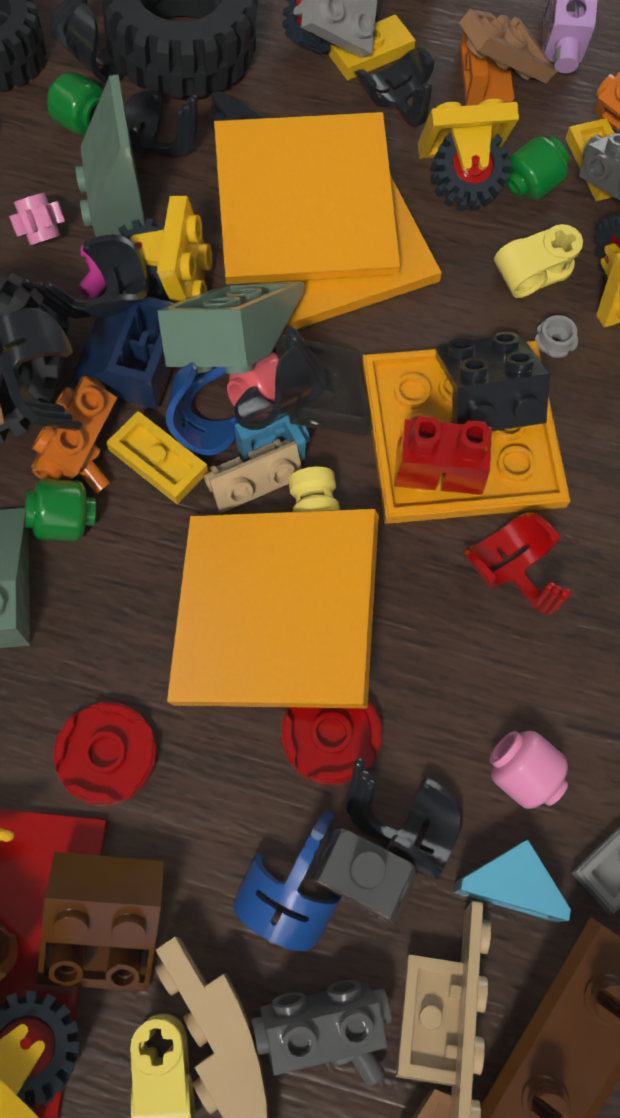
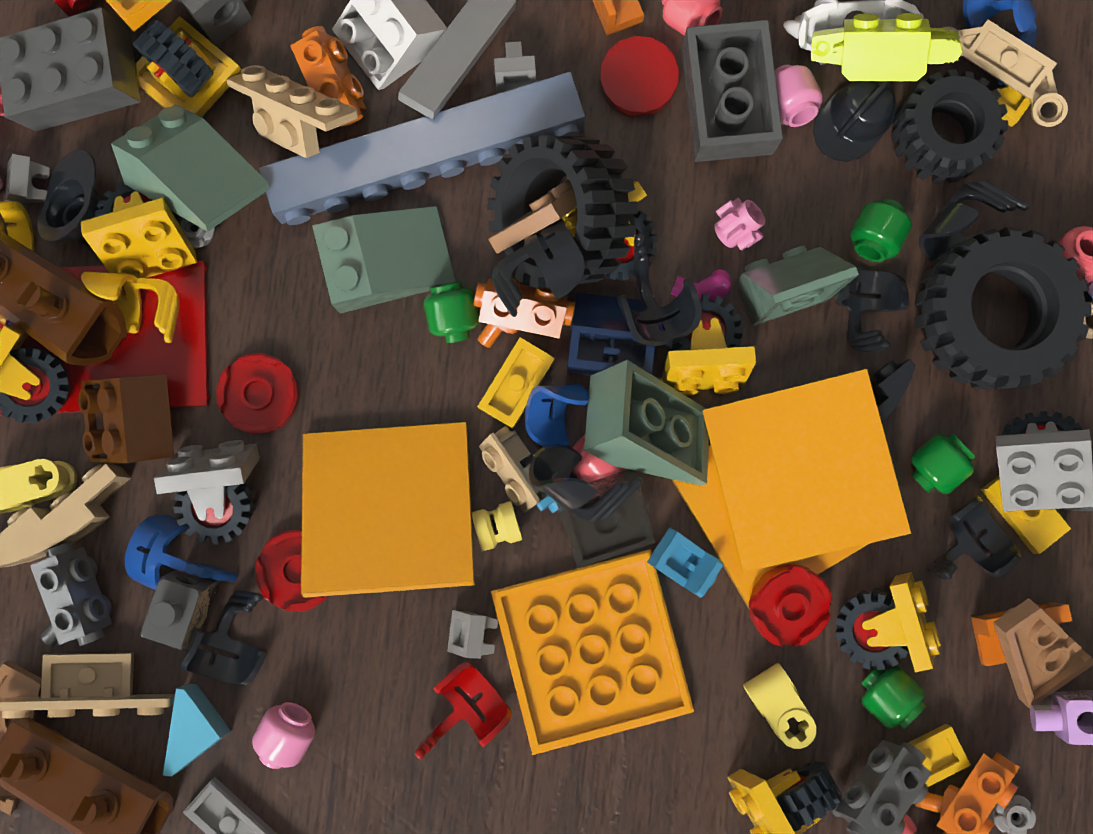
camera: 85 degrees right, 15 degrees up
(214, 813) = (211, 488): none -> light grey plate
(317, 90) = (942, 463): none -> green head
(384, 321) = (685, 563): none -> dark azure bracket
(431, 545) = (468, 633): none -> light grey tile
(438, 238) = (790, 605): none -> red tile
(446, 450) = (543, 635): red hips -> none
(495, 381) = (634, 673): black bracket -> none
(561, 328) = (713, 733): light grey plate -> none

